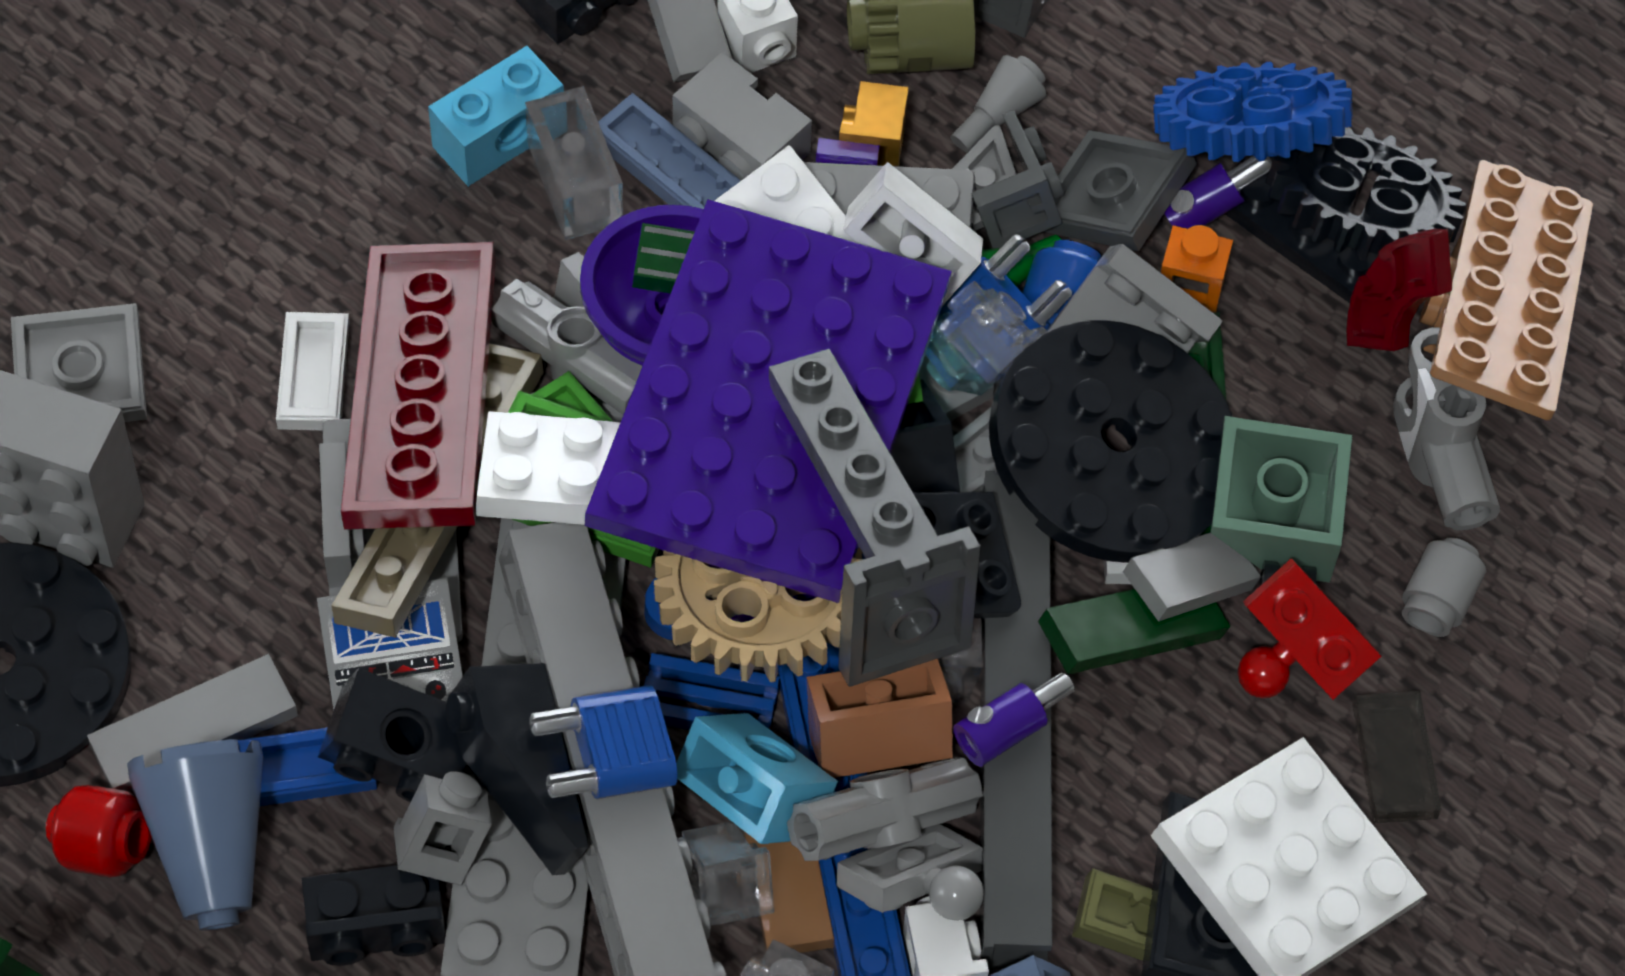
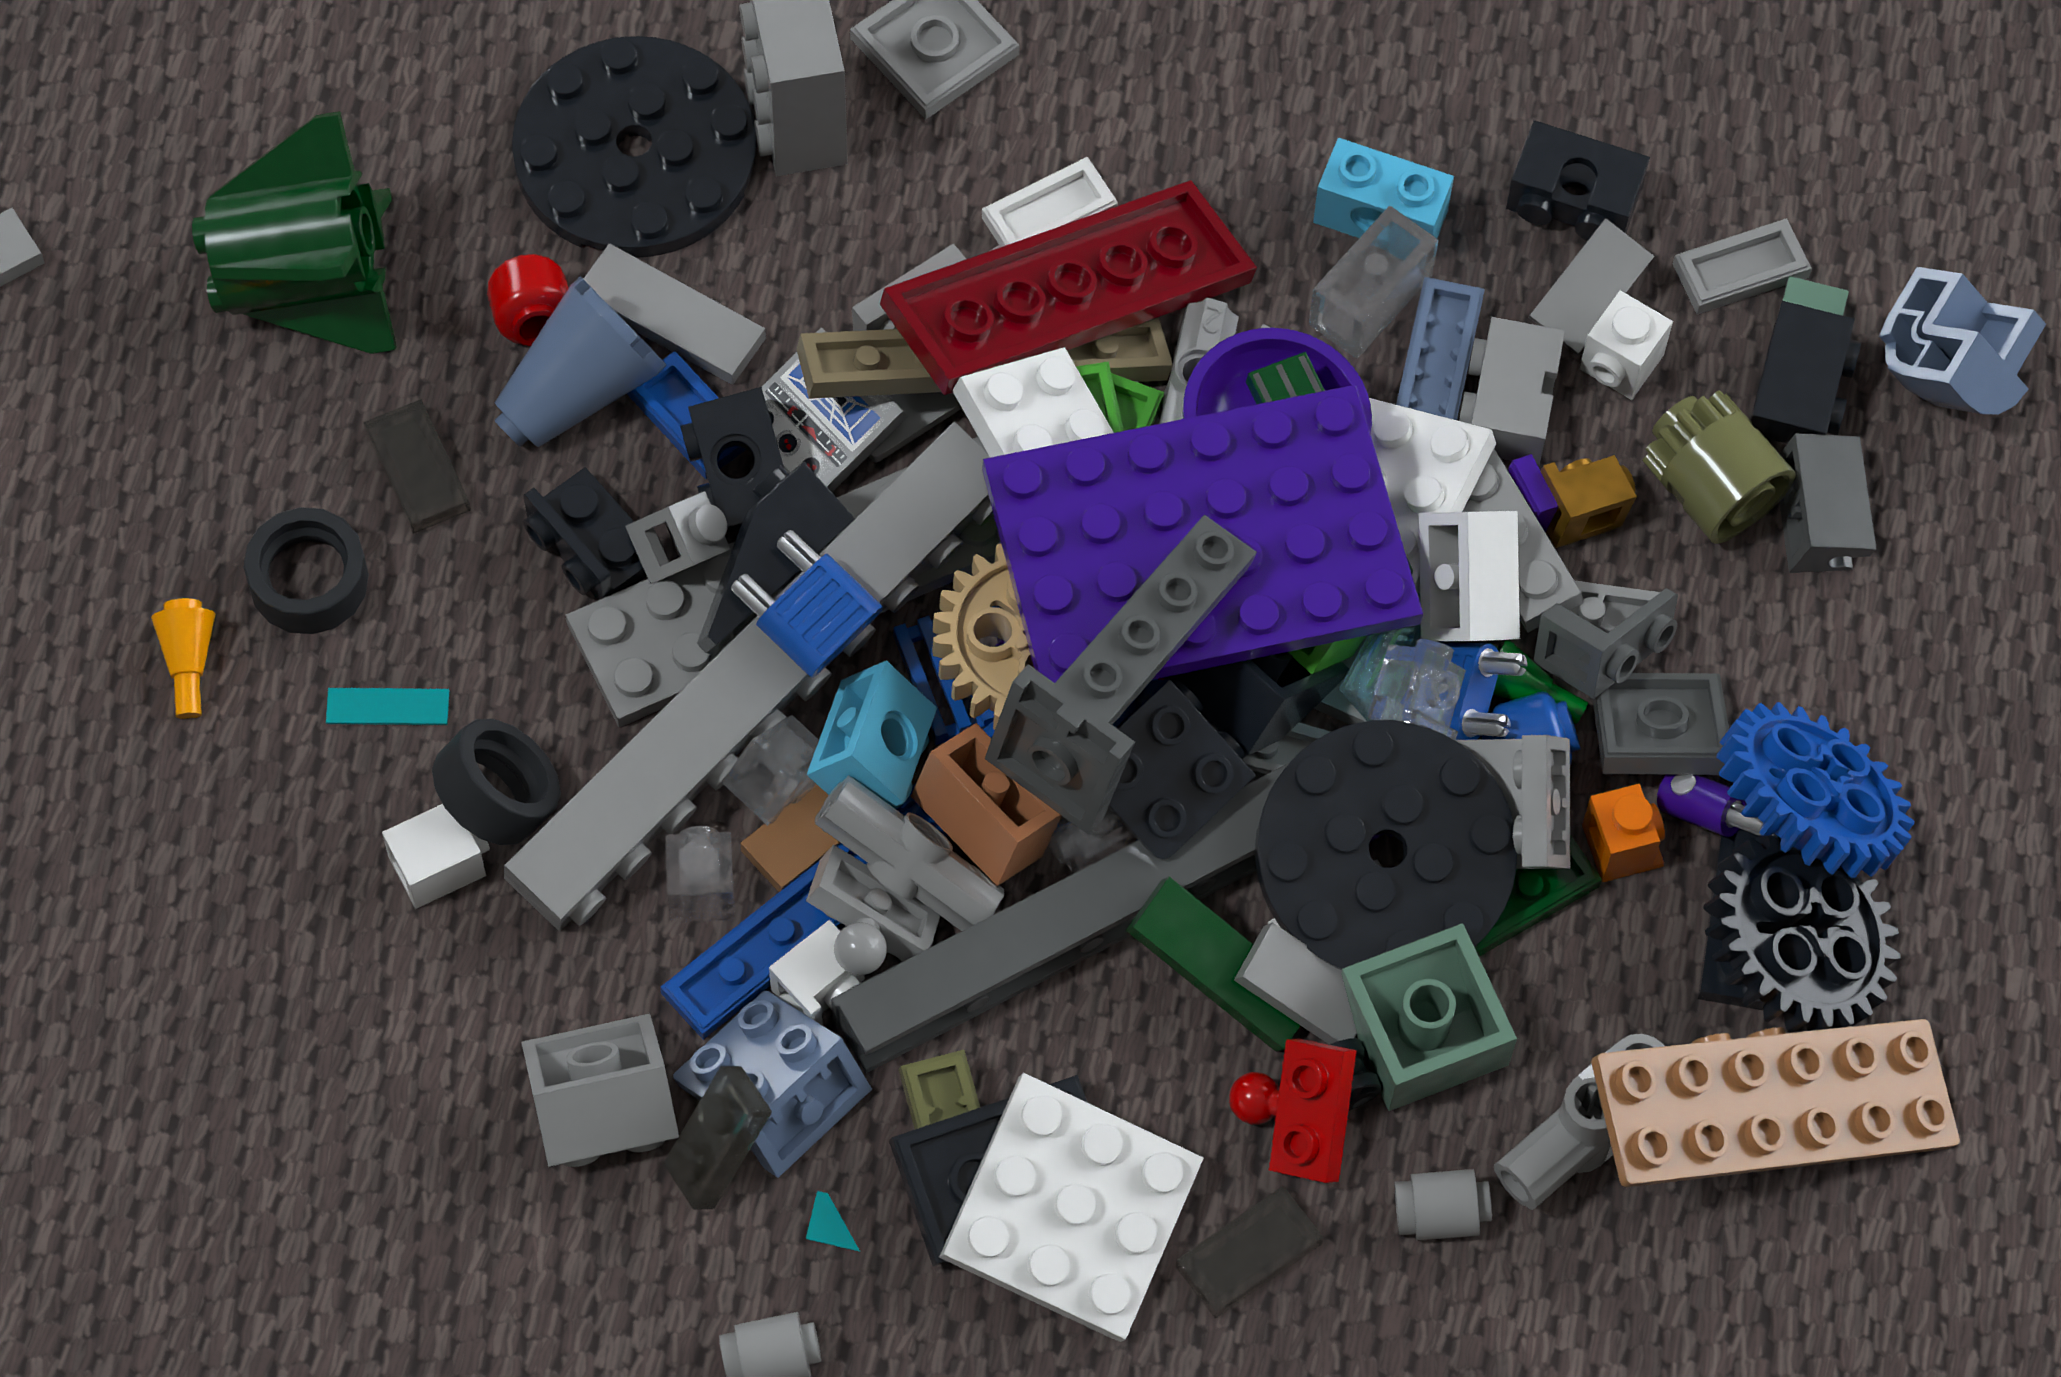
camera: 60 degrees right, 5 degrees up
(1008, 719) = (1046, 903): dark purple piece -> none
(1013, 86) = (1708, 586): light grey cone -> none
(1394, 288) = (1699, 1003): dark red tile -> none

